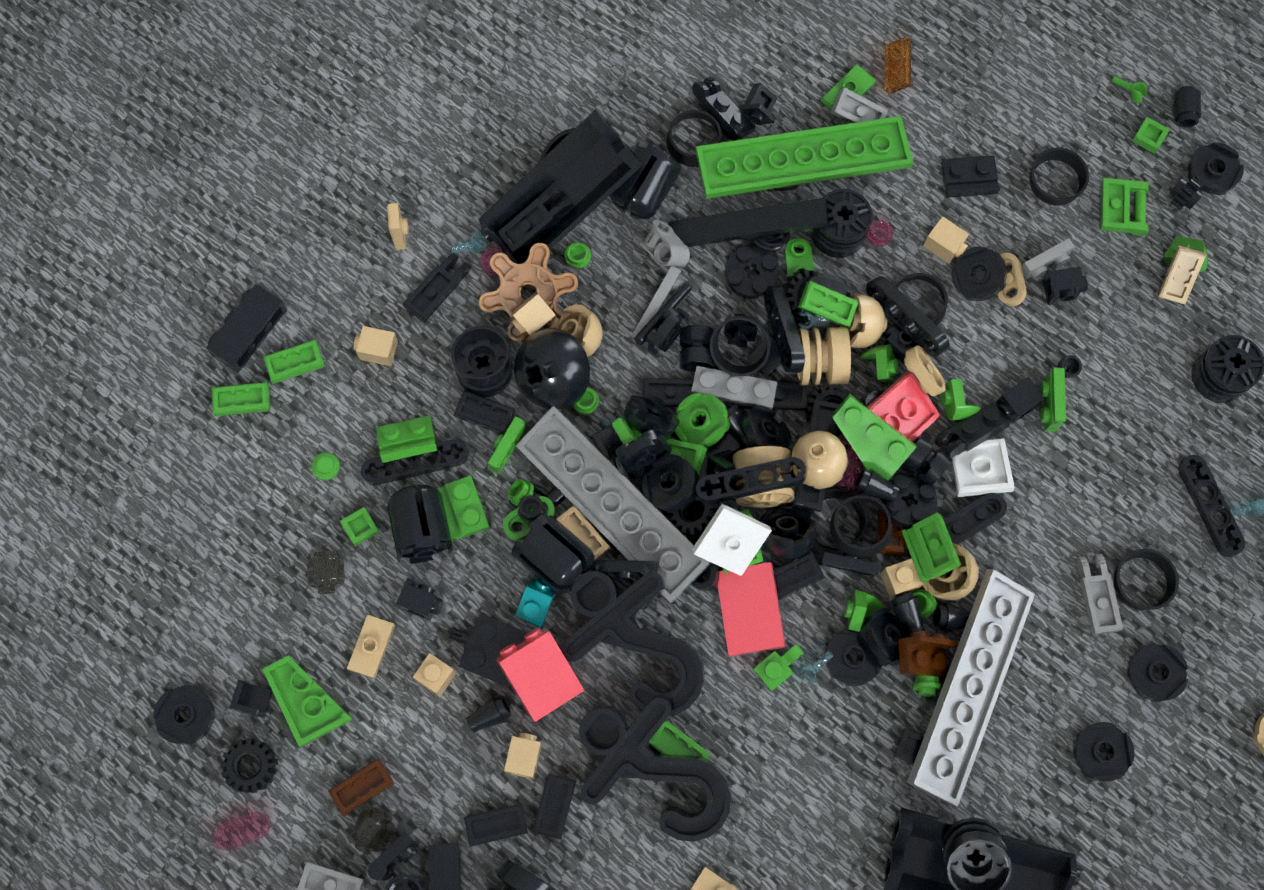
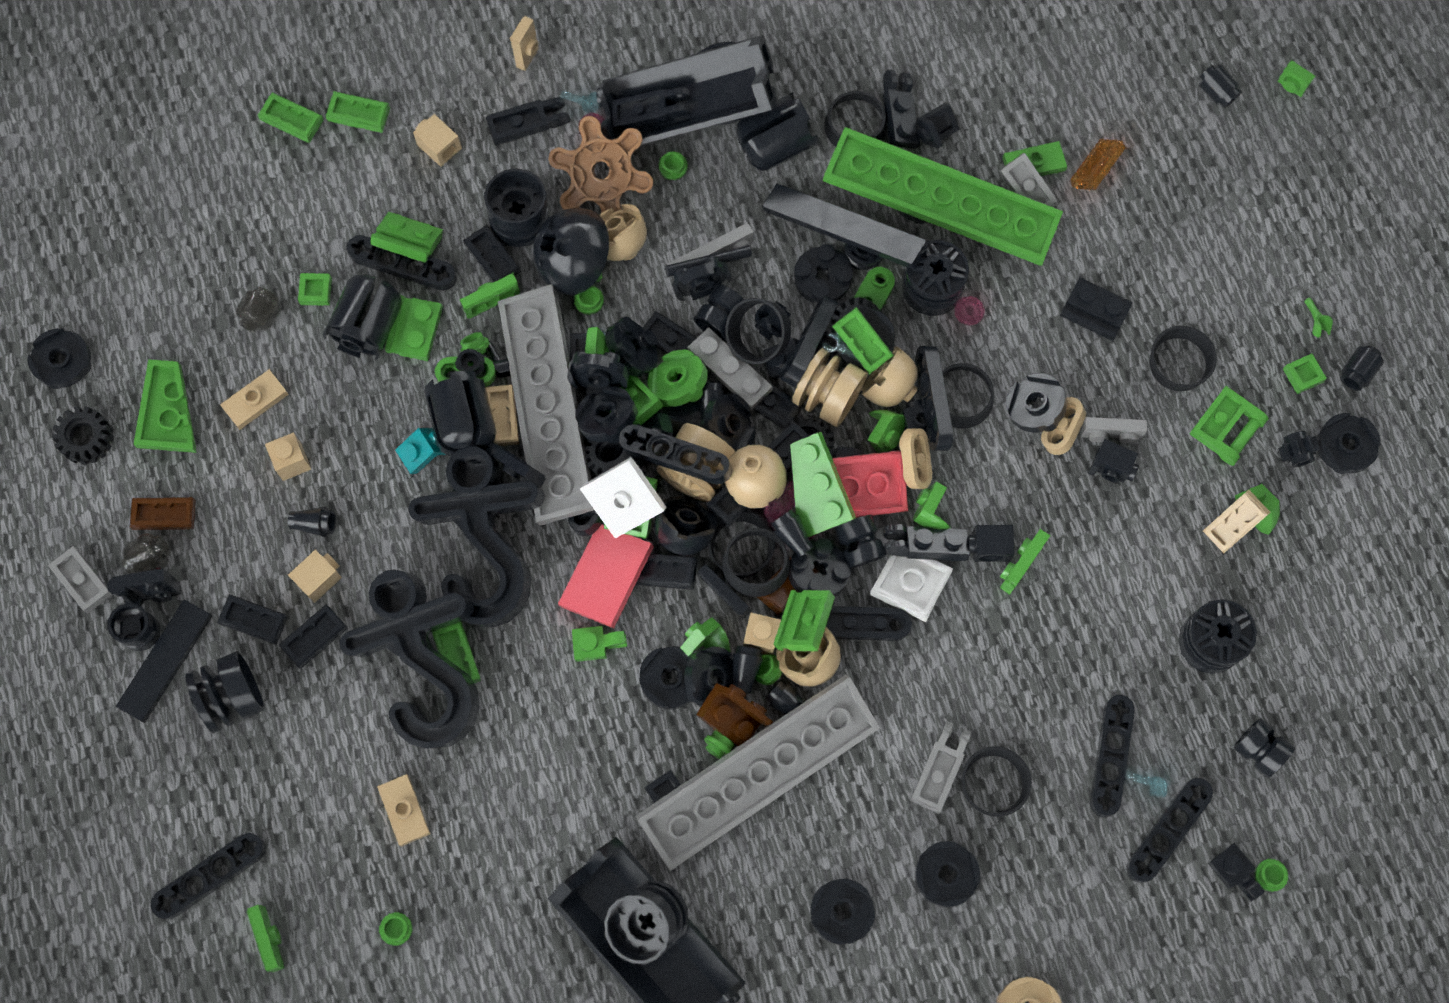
camera: 35 degrees right, 0 degrees up
(239, 825) = (39, 493): clear pink beam -> none
(246, 328) = (336, 58): black brick -> none
(251, 699) = (121, 379): black panel -> none
(325, 466) = (322, 219): bright green plate -> none
(419, 600) = (320, 383): black brick -> none
(484, 645) = (357, 470): black plate -> none
(532, 314) = (589, 191): tan brick -> none
(539, 673) = (376, 510): coral brick -> none
(665, 246) = (755, 202): light grey piece -> none
(817, 666) = (627, 664): clear light blue hand -> none
(946, 240) = (1027, 353): tan brick -> none
(1075, 367) = (1066, 547): black hinge -> none

